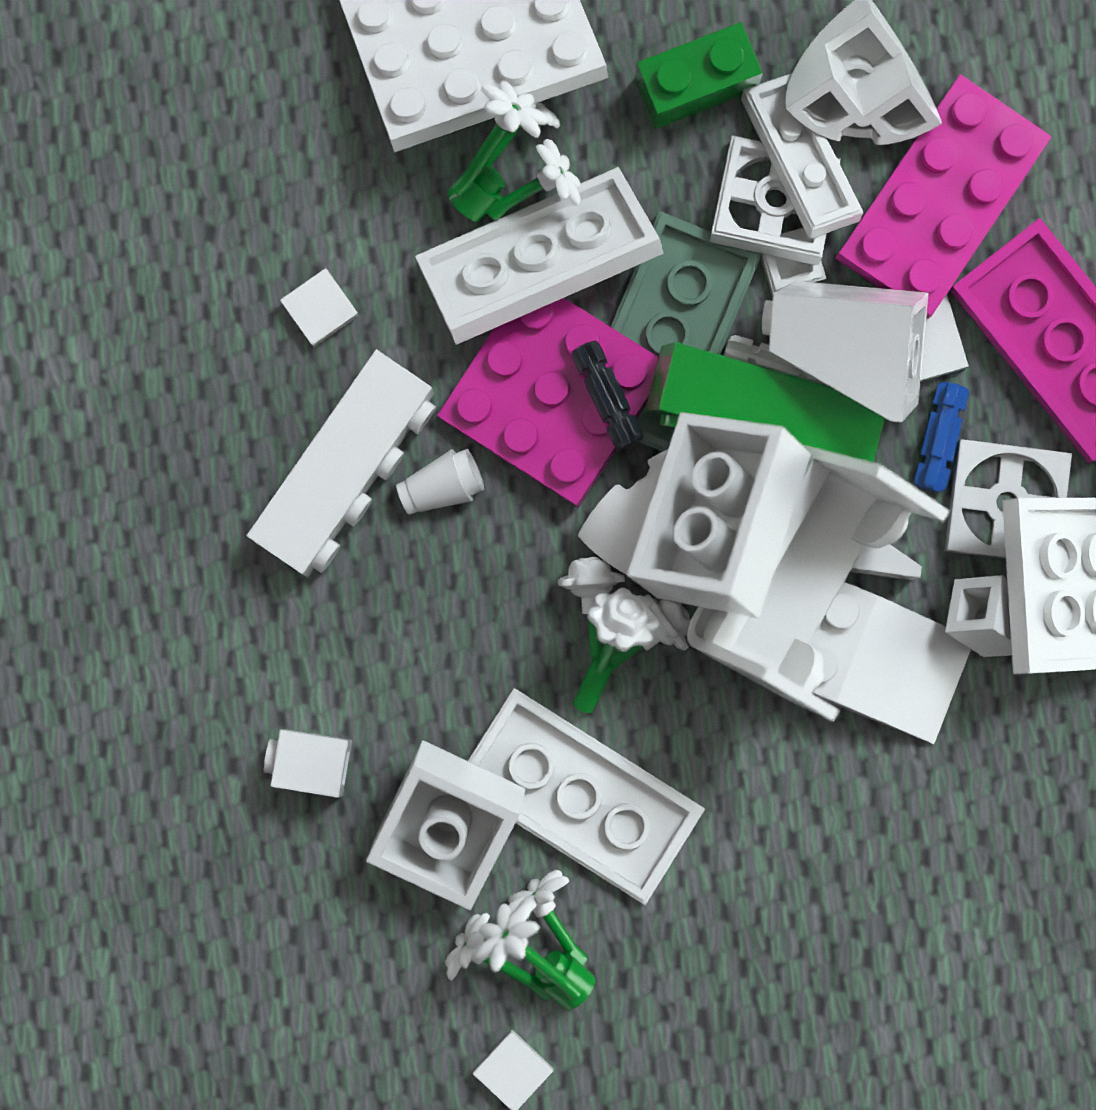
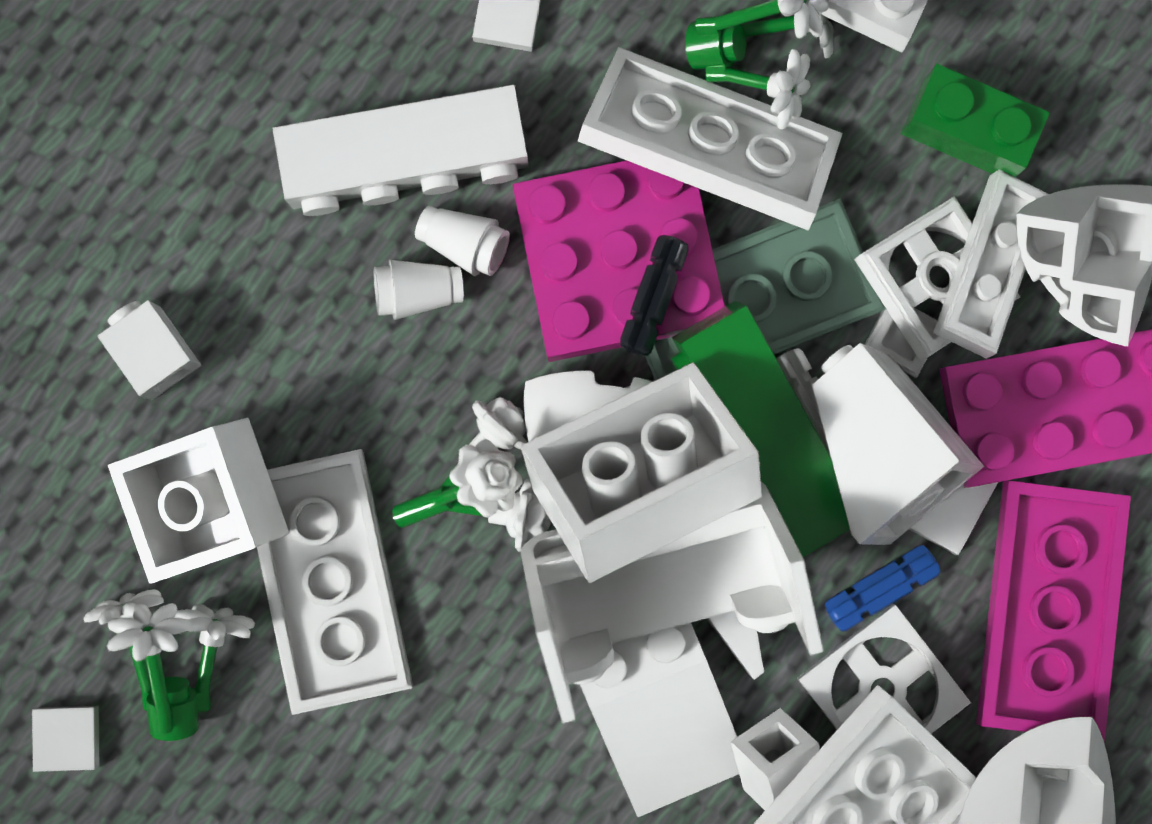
camera: 45 degrees right, 0 degrees up
(442, 547) = (415, 287): none -> white cone

